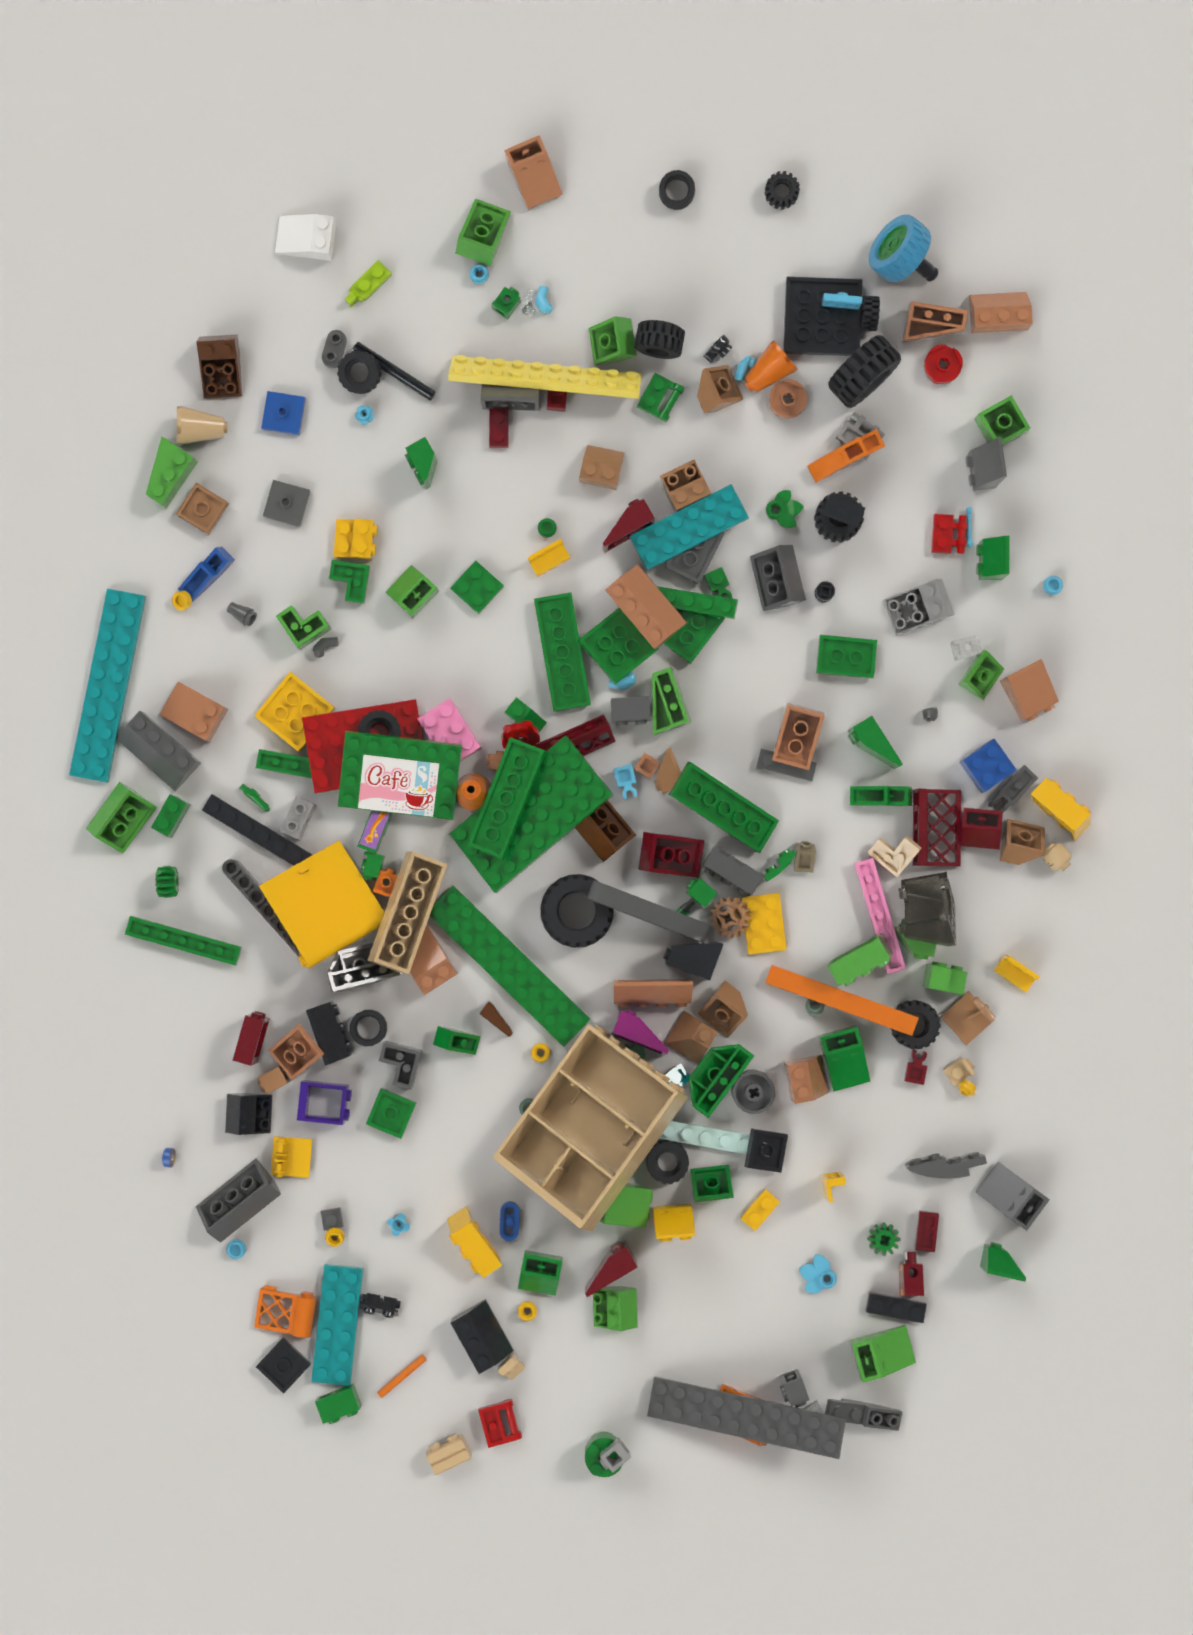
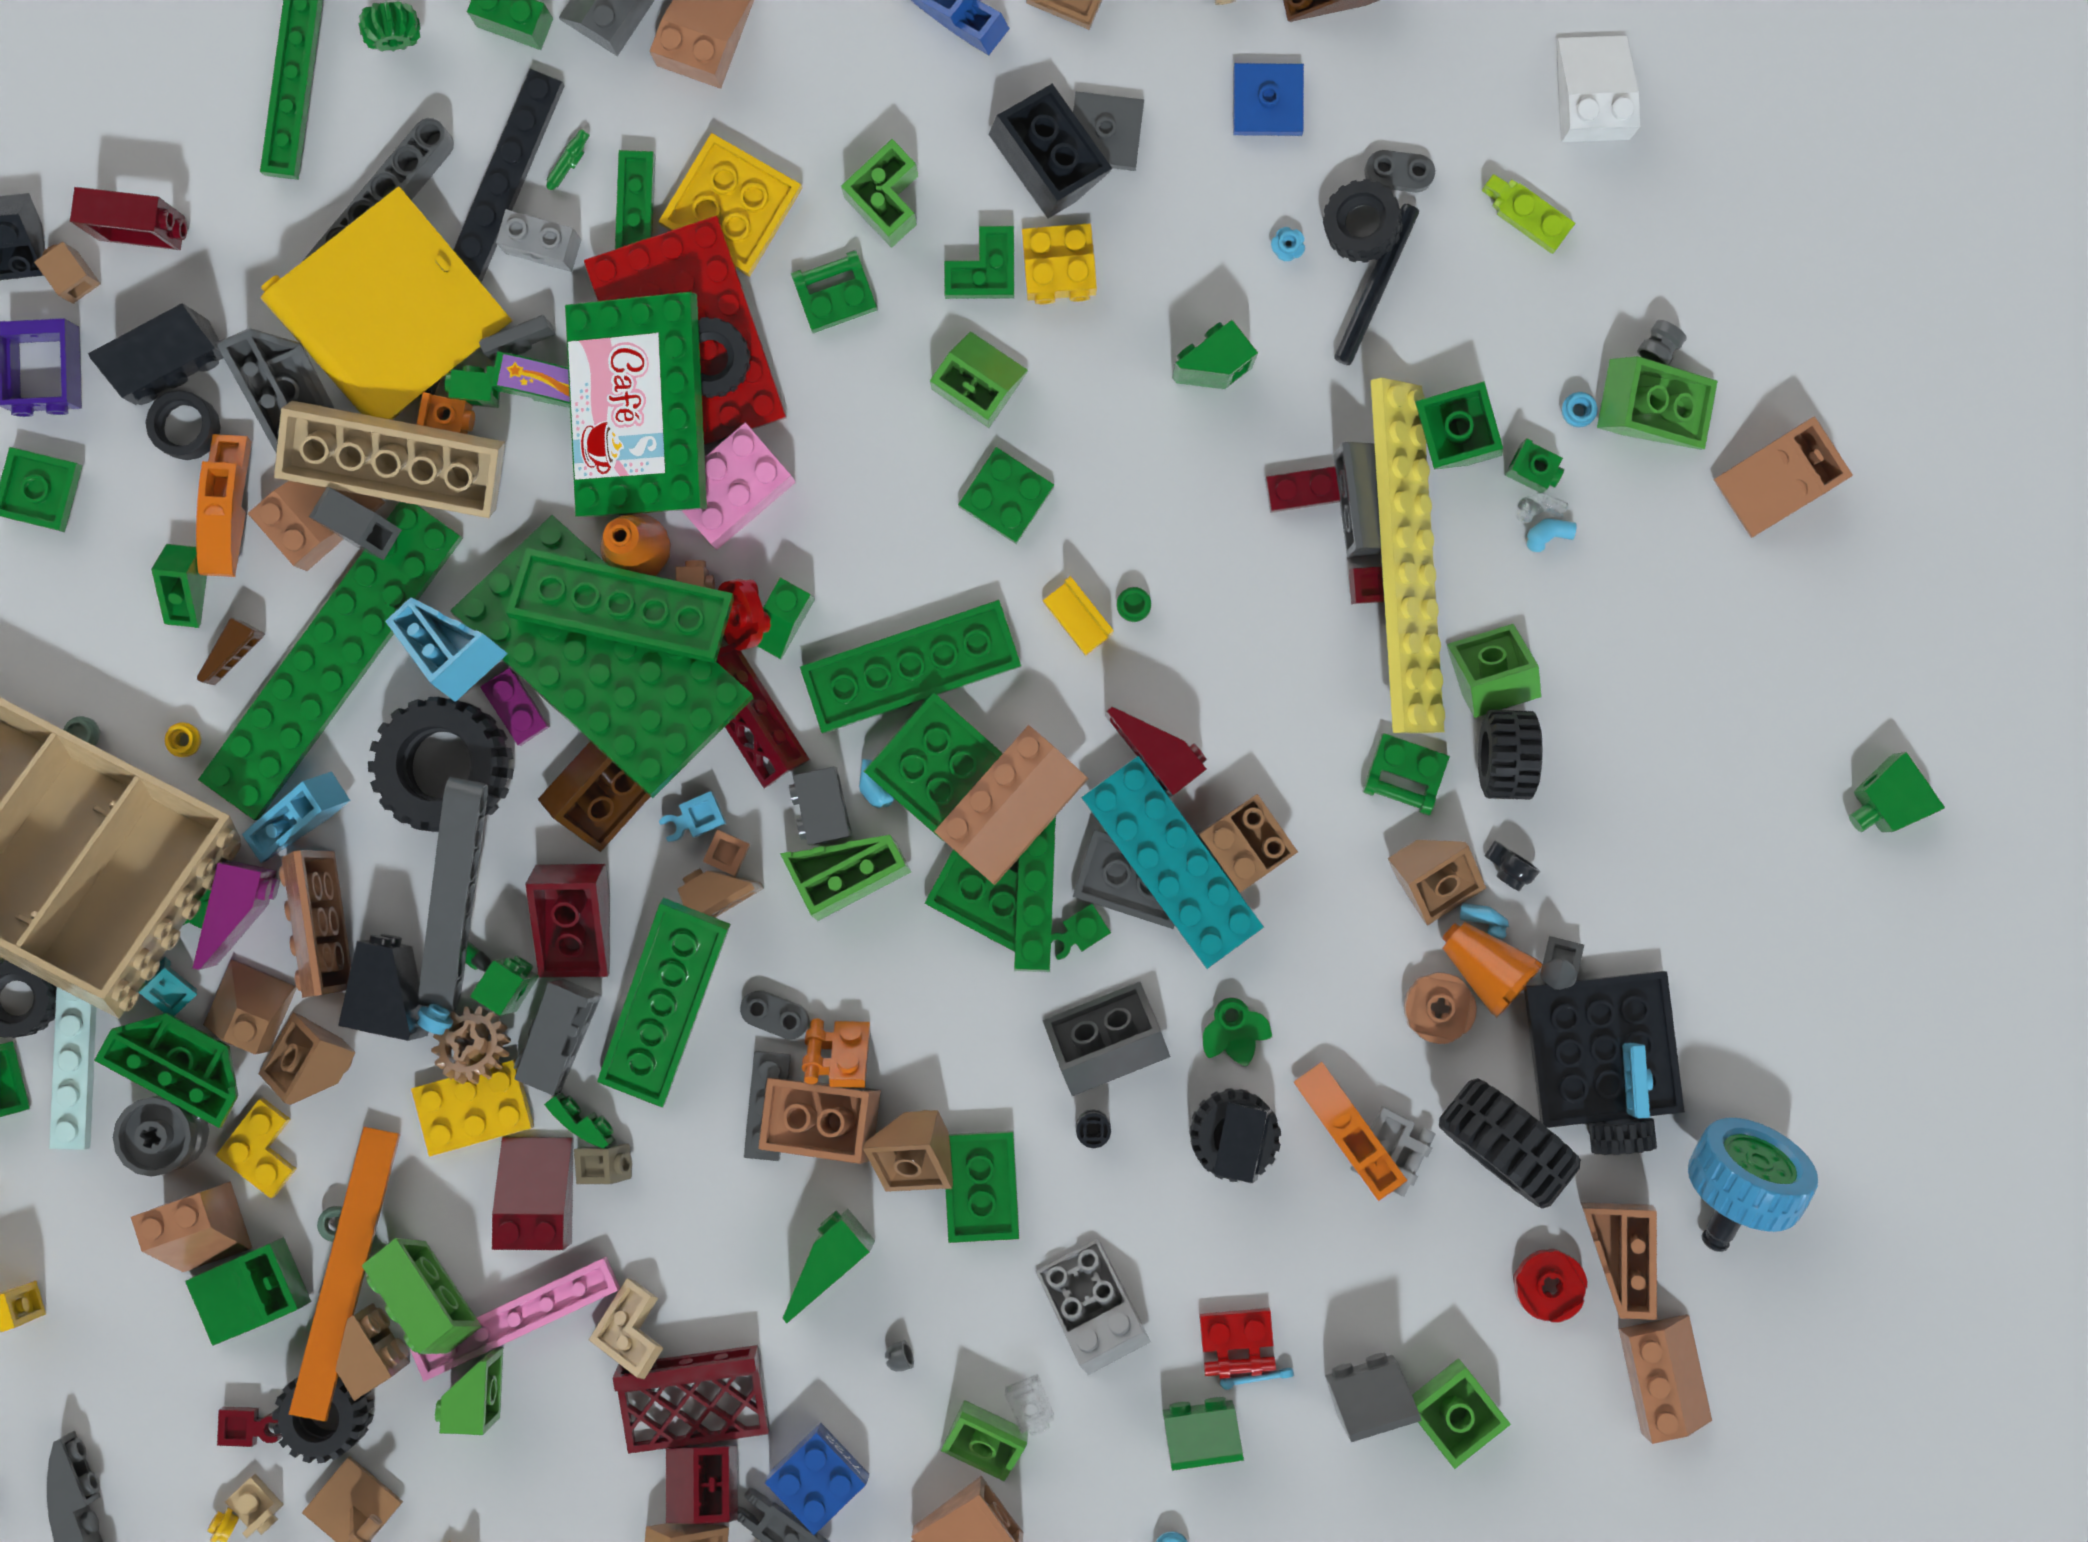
camera: 85 degrees right, 0 degrees up
(243, 614) = (892, 85): dark grey cone -> none
(294, 533) = (1049, 150): none -> black slope
(296, 1052) = (110, 298): nougat slope -> none
(322, 644) = (861, 236): dark grey arm -> none
(350, 838) = (517, 338): none -> dark grey plate
(357, 663) = (837, 302): none -> green plate
(405, 1058) = (133, 496): dark grey brick -> none
(416, 1011) = (219, 505): none -> orange slope
(440, 935) = (355, 523): none -> dark grey slope
(451, 224) = (1662, 342): none -> dark grey wheel
(479, 337) = (1460, 427): none -> green slope
(515, 895) = (444, 648): none -> medium azure wedge
(550, 869) = (514, 706): none -> magenta plate
(592, 996) = (296, 815): none -> medium azure slope
(601, 467) = (1260, 685): medium nougat slope -> none
(676, 175) = (1821, 739): black tyre -> none
(712, 142) = (1894, 796): none -> green torso
(713, 933) = (434, 1019): none -> medium azure plate
(738, 753) = (774, 1014): none -> dark grey plate
(764, 714) = (848, 1055): none -> orange plate
(766, 1150) = (58, 1174): black plate -> none
(769, 1047) = (250, 1152): none -> yellow plate
(774, 331) = (1561, 962): none -> dark grey plate
(789, 181) = (1847, 942): black tyre -> none
(814, 895) = (533, 1194): none -> slope
(823, 688) = (912, 1153): none -> medium nougat slope
(880, 796) = (734, 1288): green slope -> none
(888, 993) = (369, 1352): none -> medium nougat slope
(928, 910) = (525, 1410): clear smoke windscreen -> none
(945, 979) = (413, 1454): bright green brick -> none

